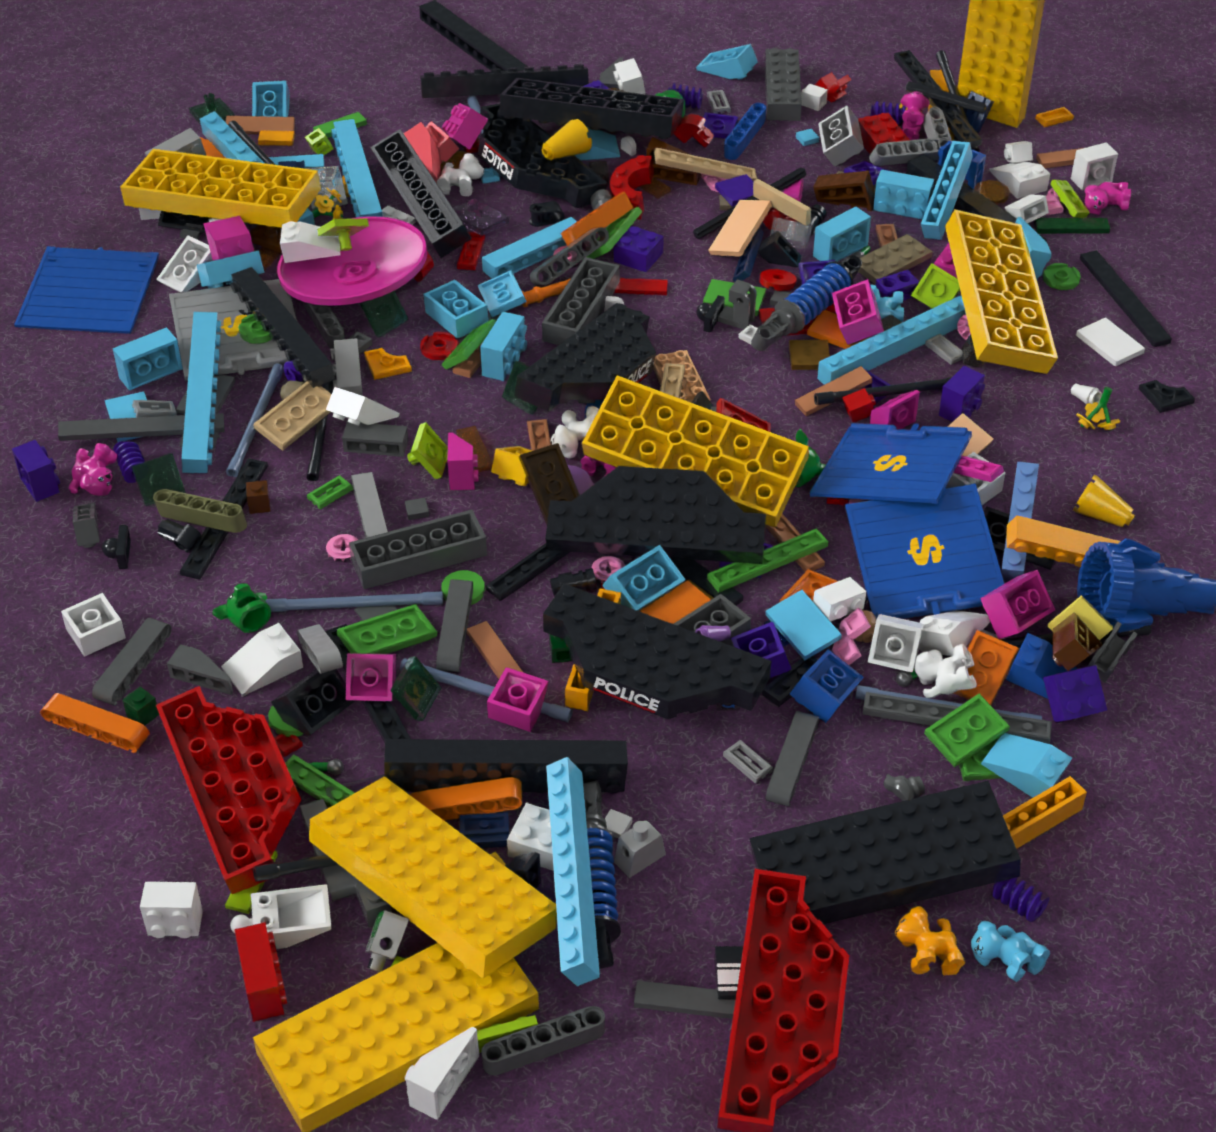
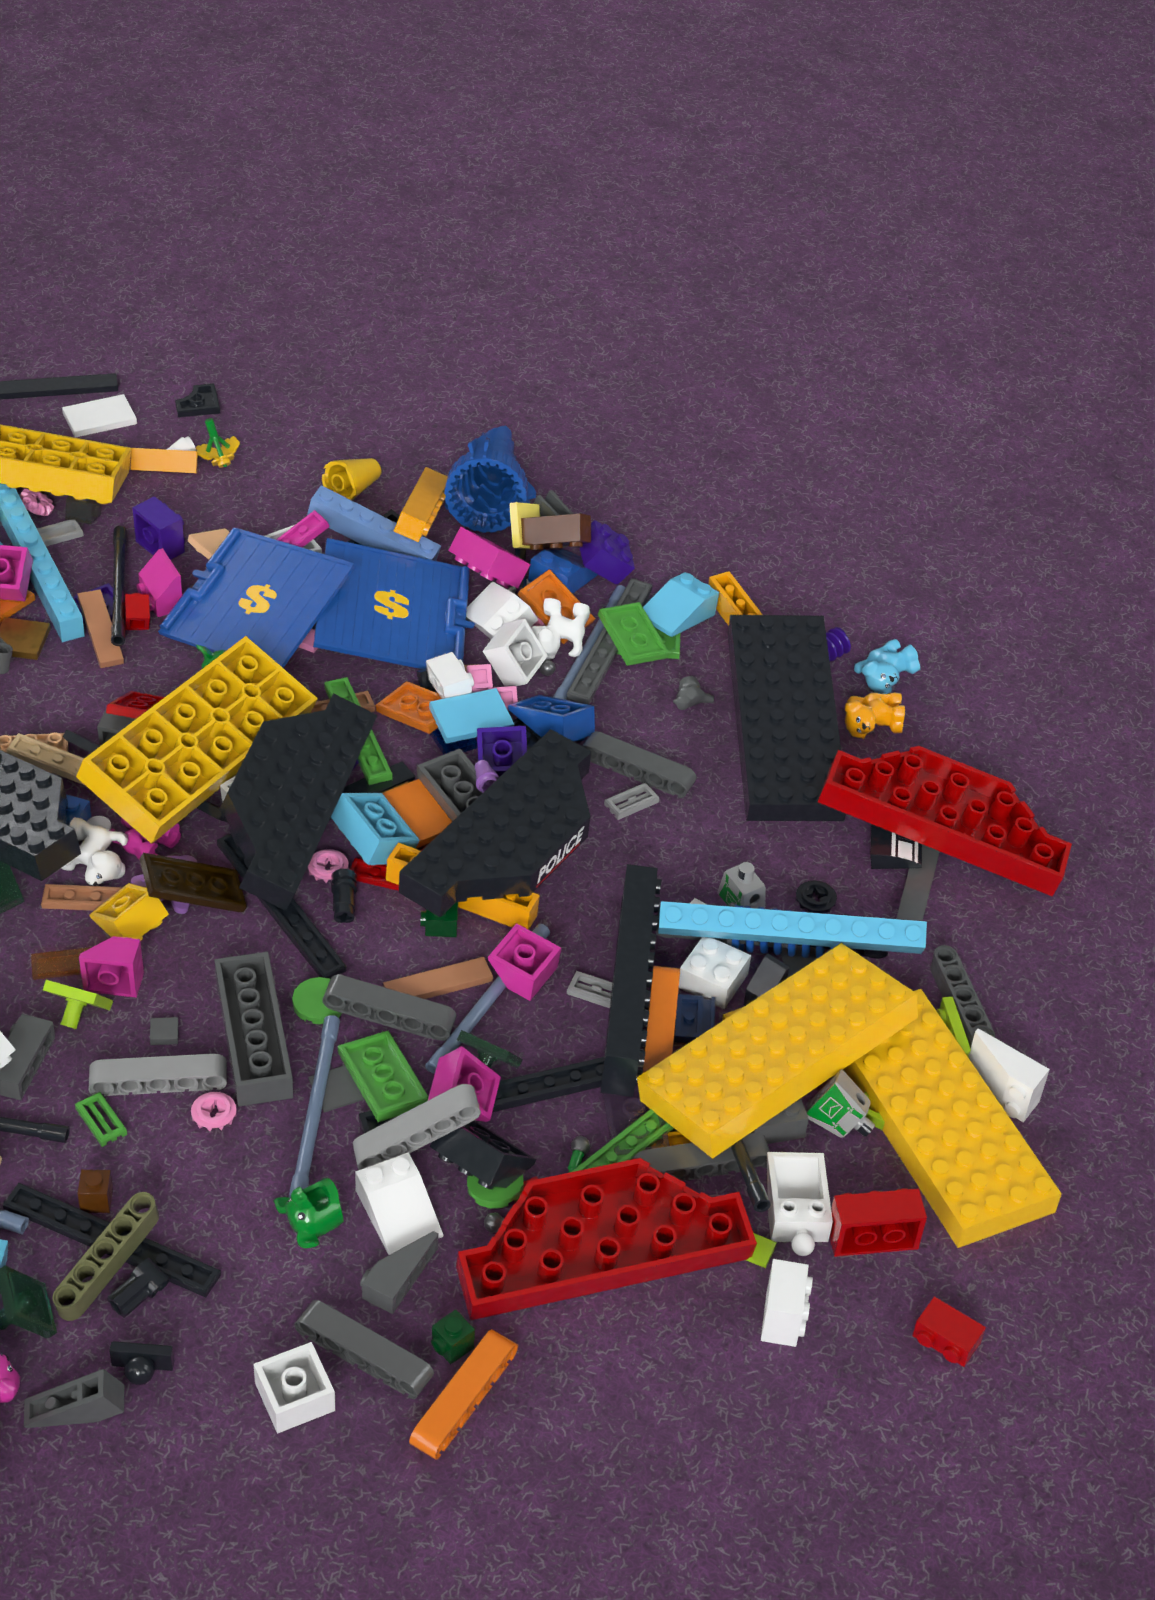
camera: 85 degrees left, 0 degrees up
(156, 1041) = (948, 1332): none -> red brick
(665, 906) = (823, 892): none -> black gear
(1065, 387) = (164, 460): none -> light orange tile

